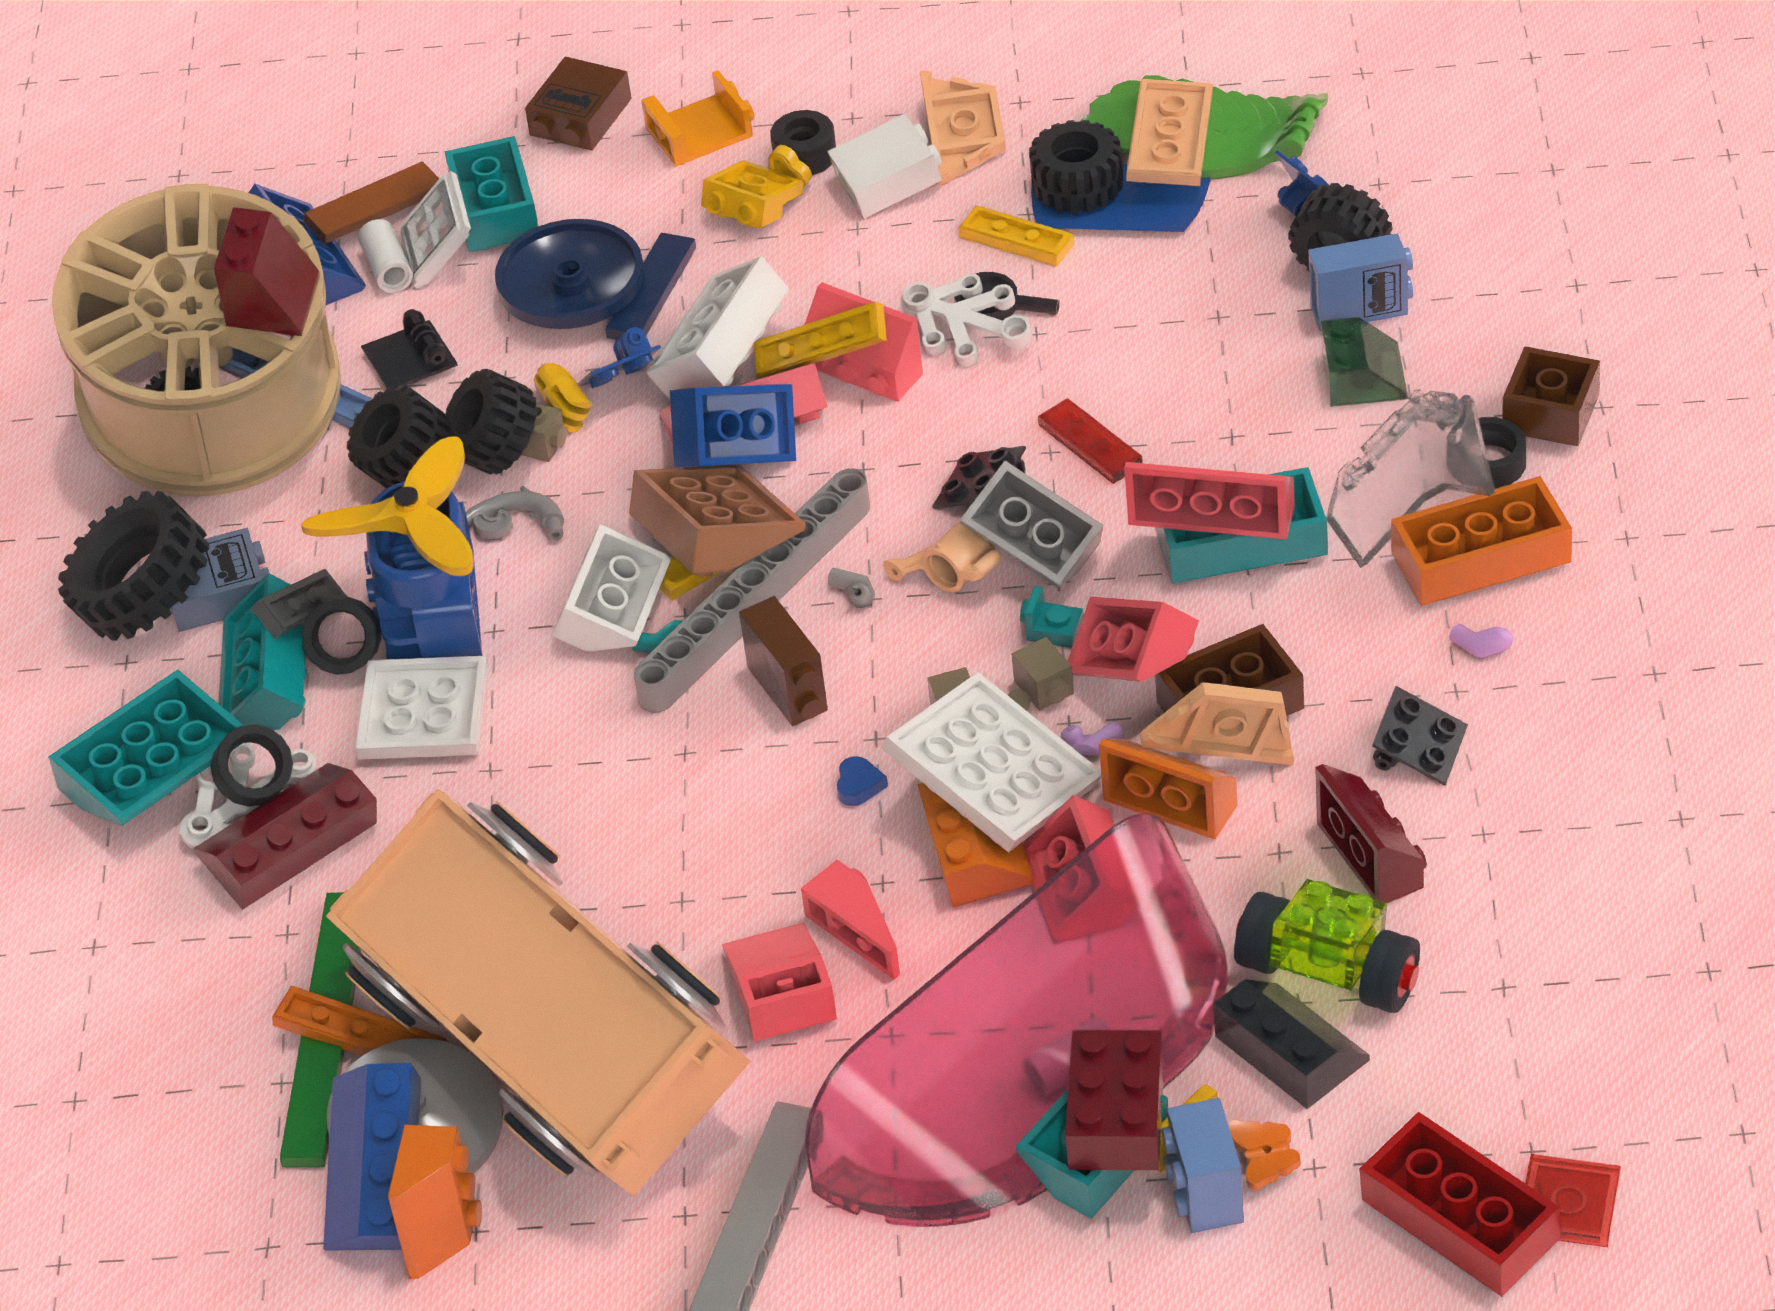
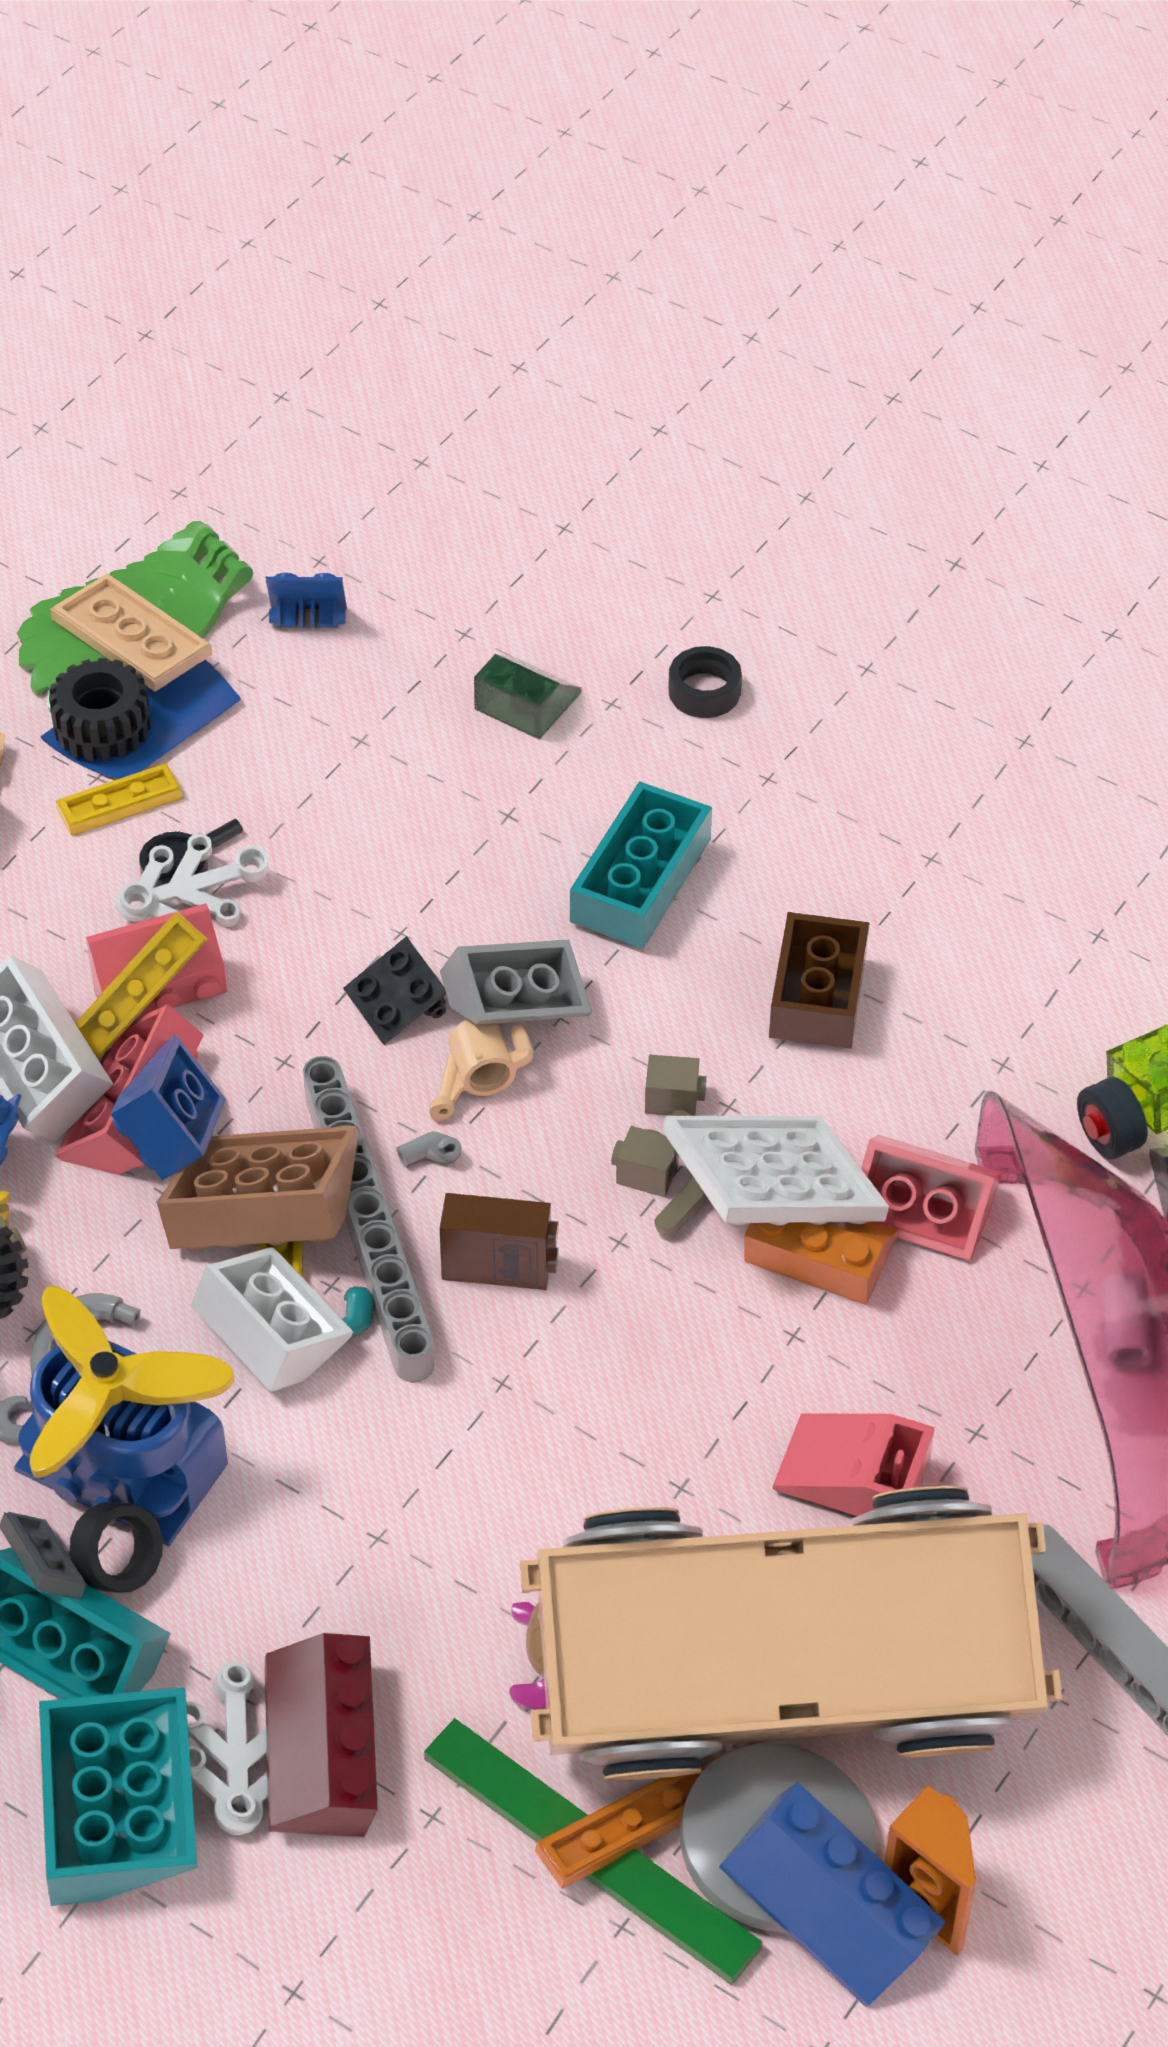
camera: 60 degrees left, 5 degrees up
(267, 739) = (208, 1729): black tyre -> none
(422, 707) = (257, 1542): white plate -> none
(846, 909) = (831, 1372): coral slope -> none
(859, 781) = (665, 1280): blue tile -> none
(1050, 620) = (609, 1046): teal bracket -> none
(1088, 439) = (420, 899): clear red tile -> none
(1089, 743) = (778, 1098): lavender arm -> none
(1130, 639) = (721, 1004): coral slope -> none
(1166, 787) = (887, 1082): orange slope -> none
(1209, 500) = (635, 852): coral slope -> none
(1225, 724) = (883, 1000): light nougat wing -> none
(1336, 217) = (388, 606): black tyre -> none
(1360, 279) = (448, 631): medium blue brick -> none
(1367, 835) = (1060, 1000): dark red slope -> none
(1408, 460) = (670, 707): clear windscreen -> none
(1417, 737) = (968, 908): black hinge -> none
(1481, 540) = (808, 741): orange brick -> none
(1481, 643) = (903, 812): lavender arm -> none
(1552, 395) = (694, 606): reddish brown brick -> none

